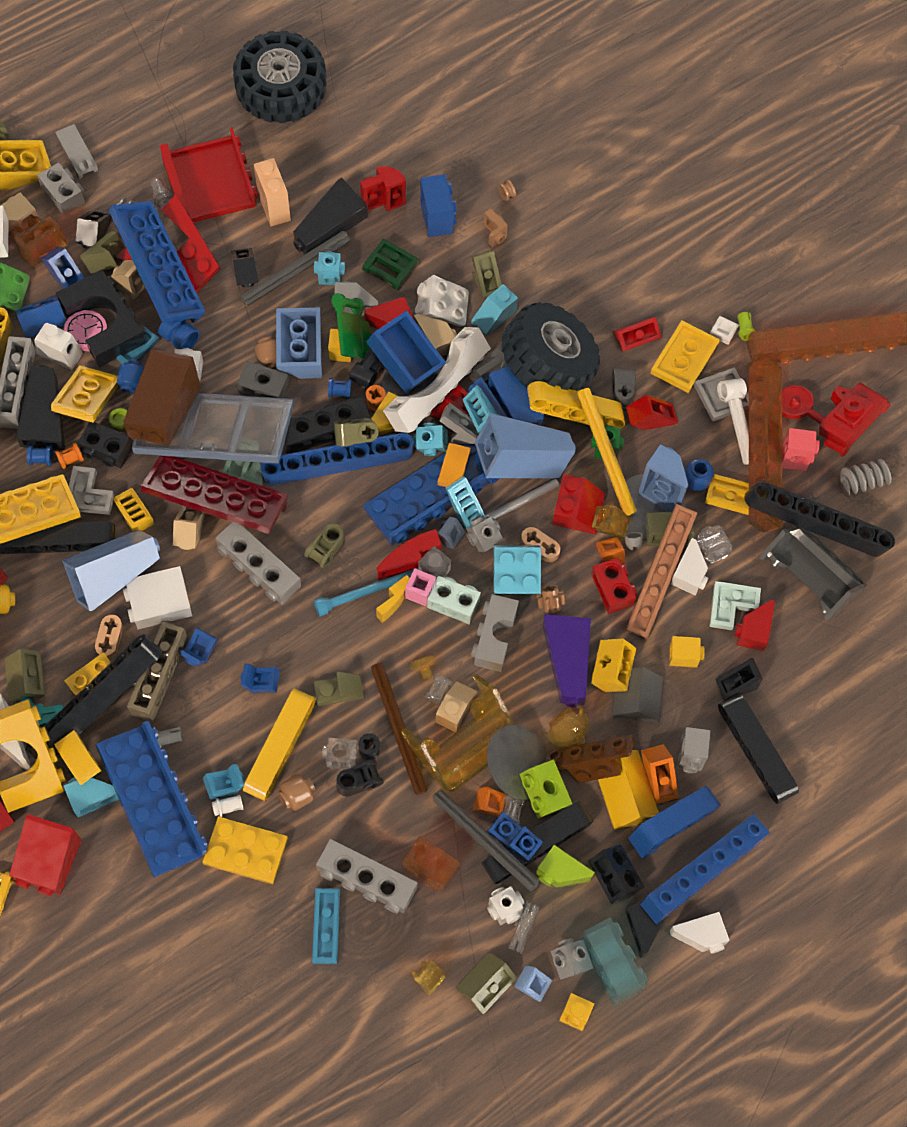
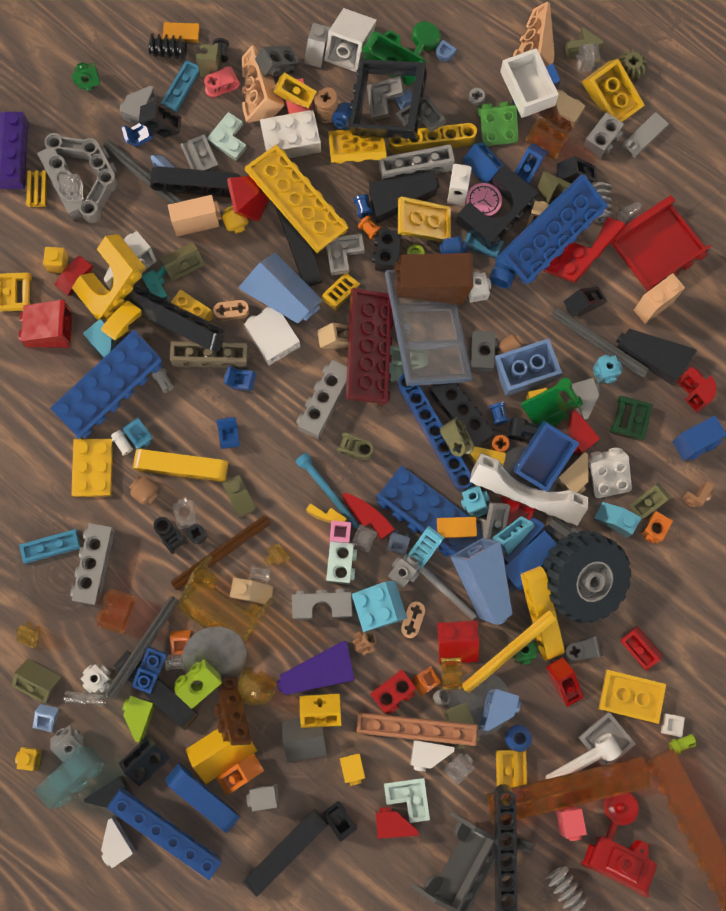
camera: 75 degrees right, 10 degrees up
(513, 270) = (662, 522): none -> orange brick

